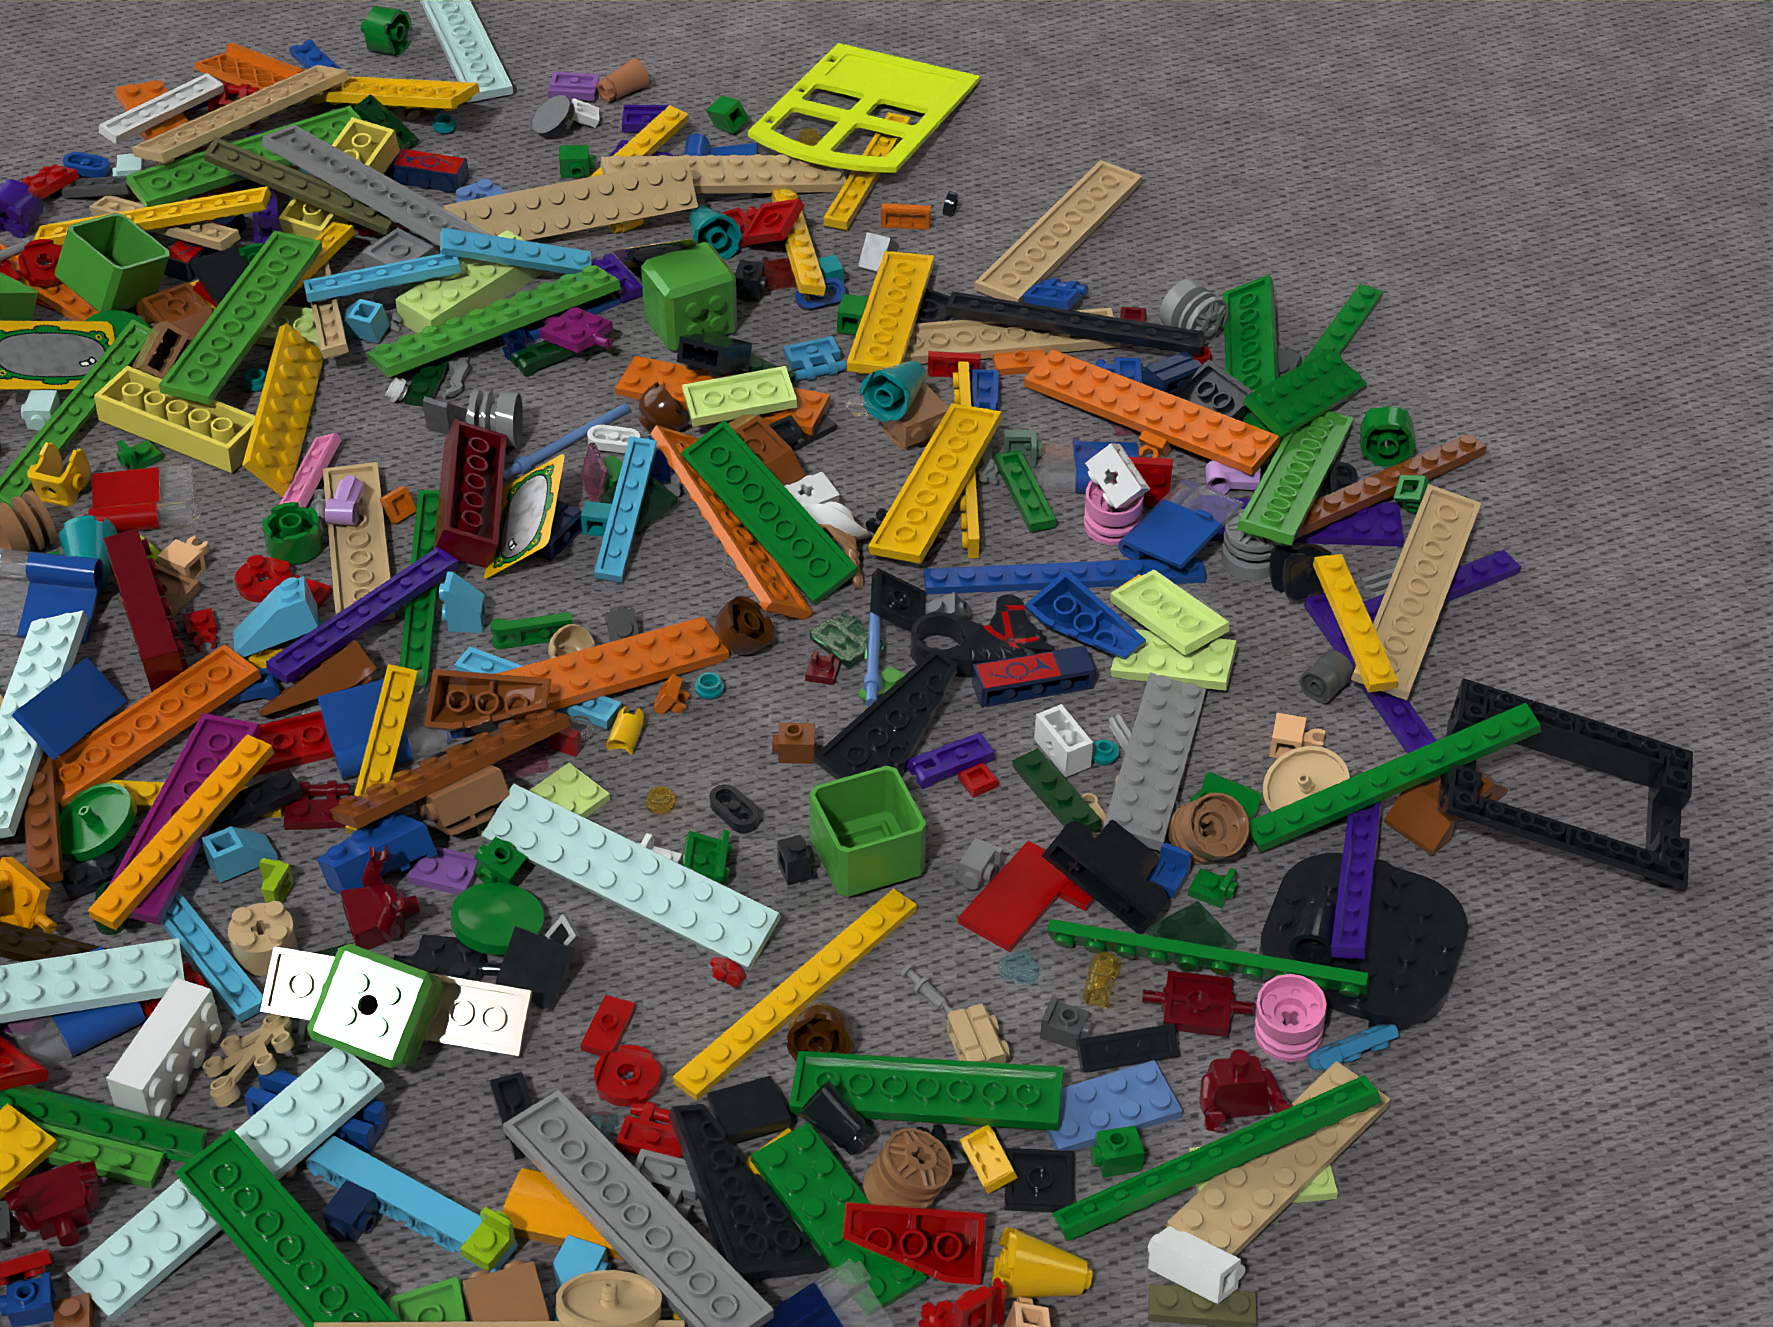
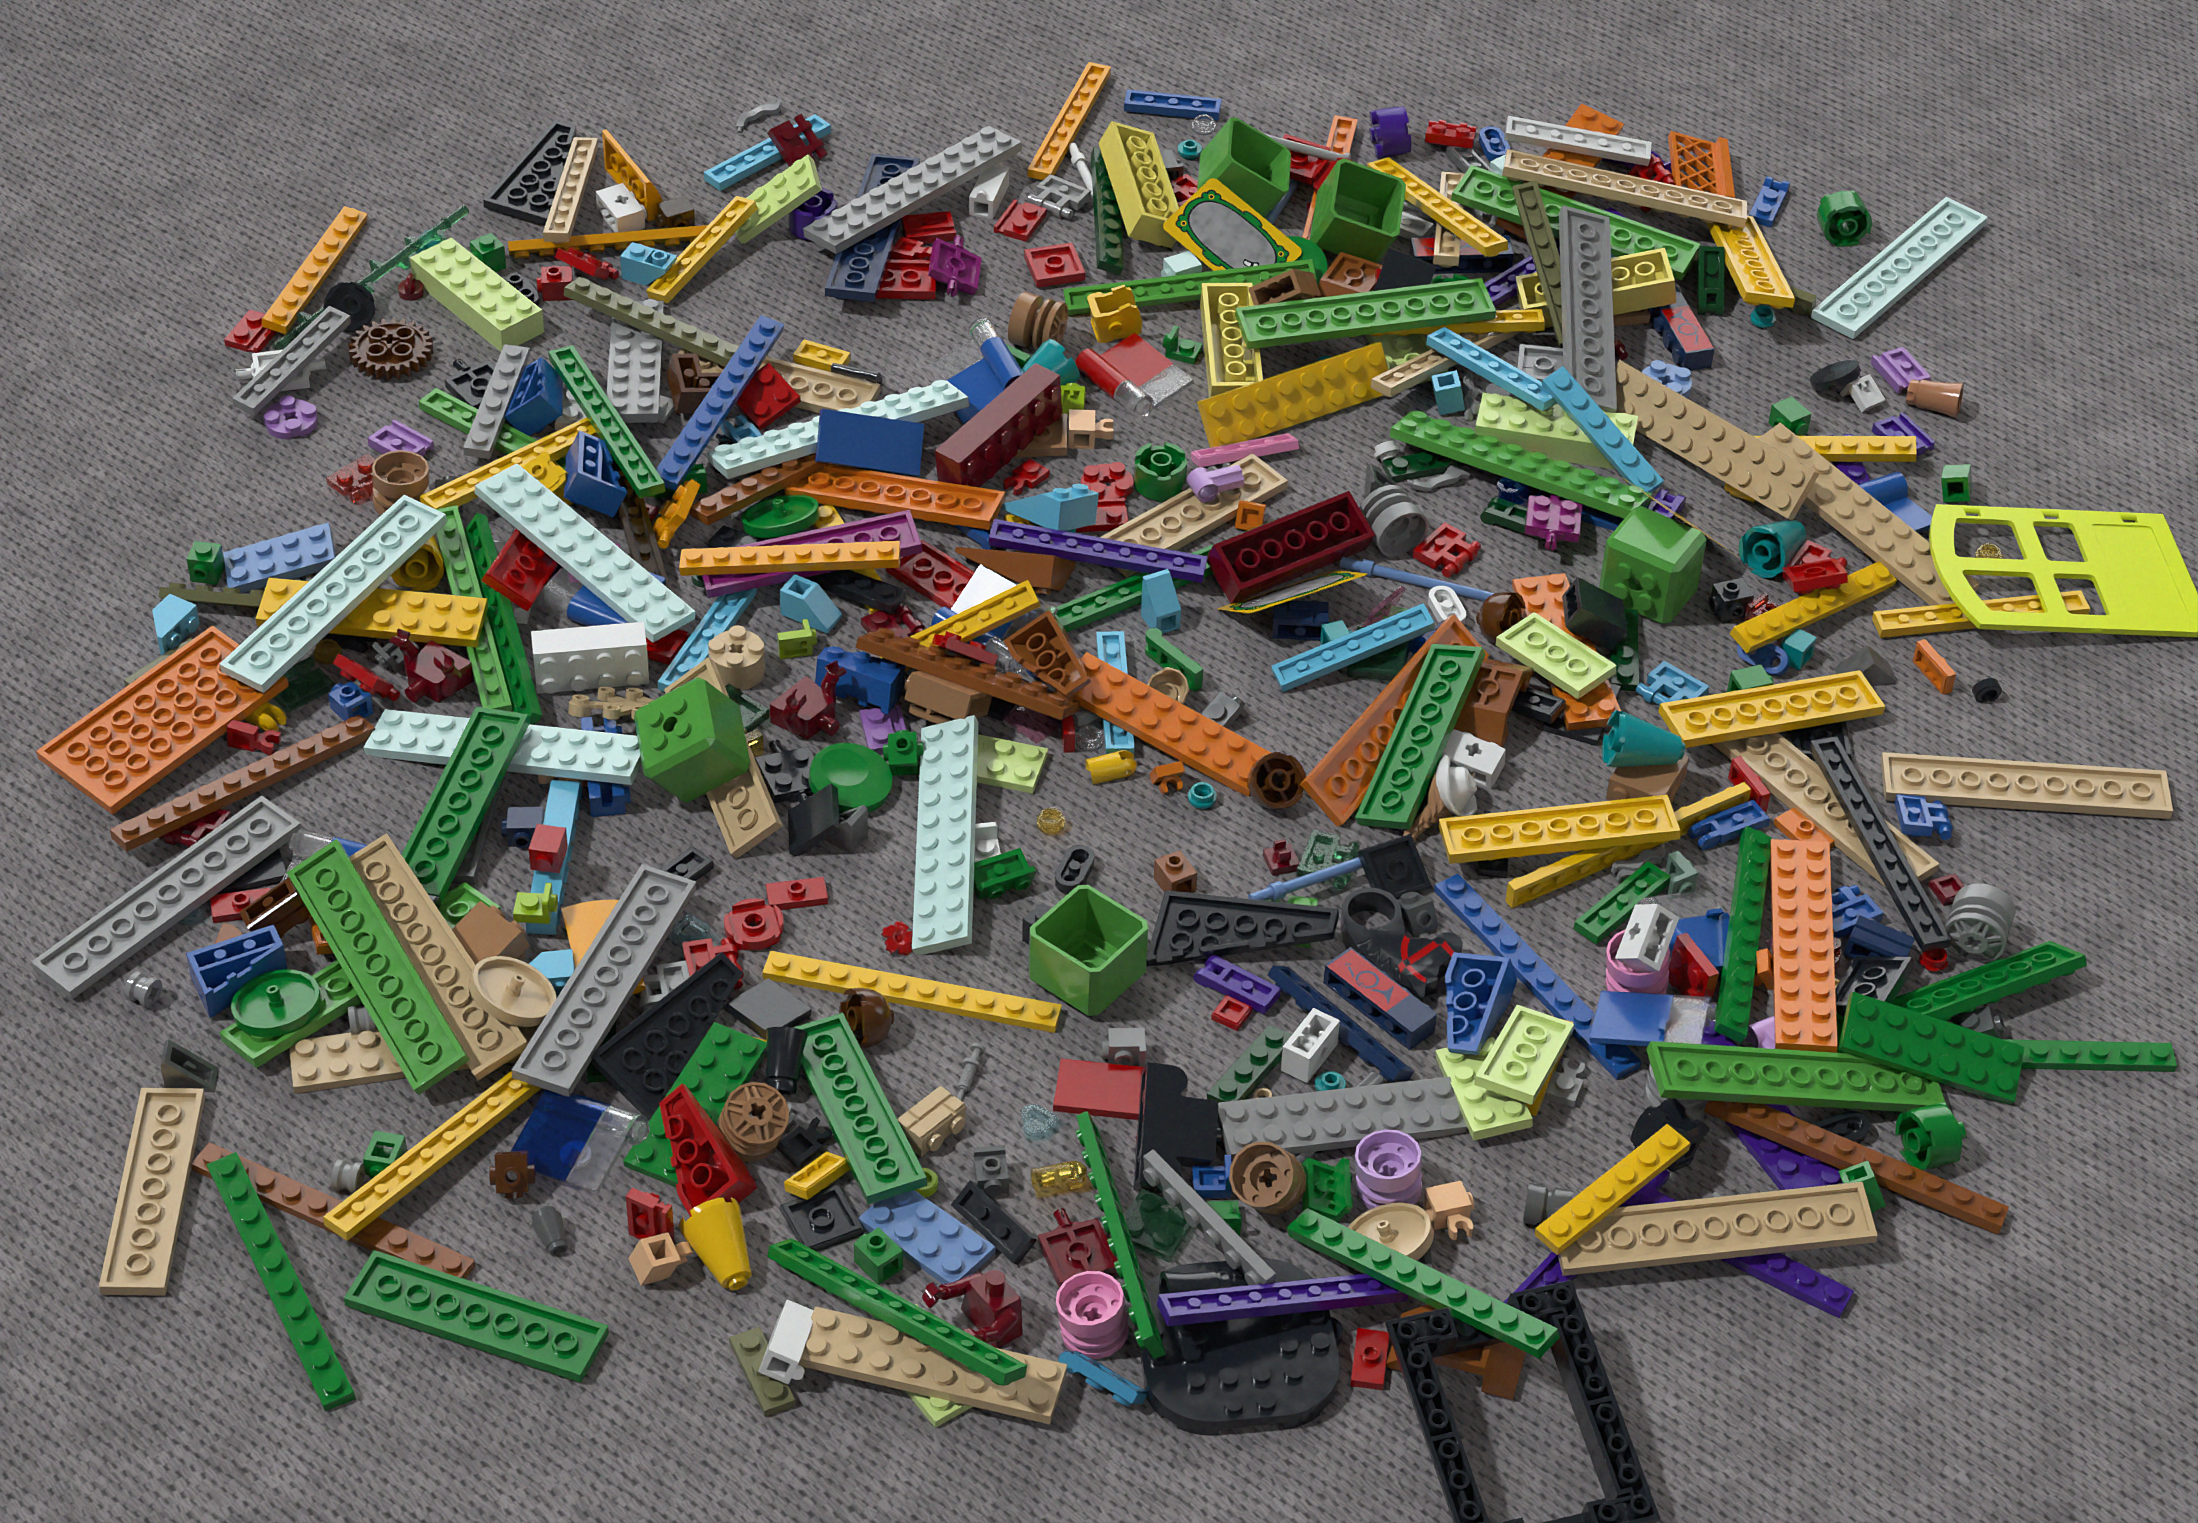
camera: 60 degrees right, 0 degrees up
(414, 755) = (973, 650): none -> red plate
(426, 1193) = (548, 848): none -> red brick
(539, 412) = (1441, 544): none -> red plate
(1001, 721) = (1349, 1031): none -> dark blue plate
(1101, 431) = (1743, 935): none -> green plate
(1240, 749) = (1388, 1169): none -> lavender wheel
(1243, 887) = (1202, 1216): none -> light grey plate
(1418, 859) = (1369, 1359): none -> red plate

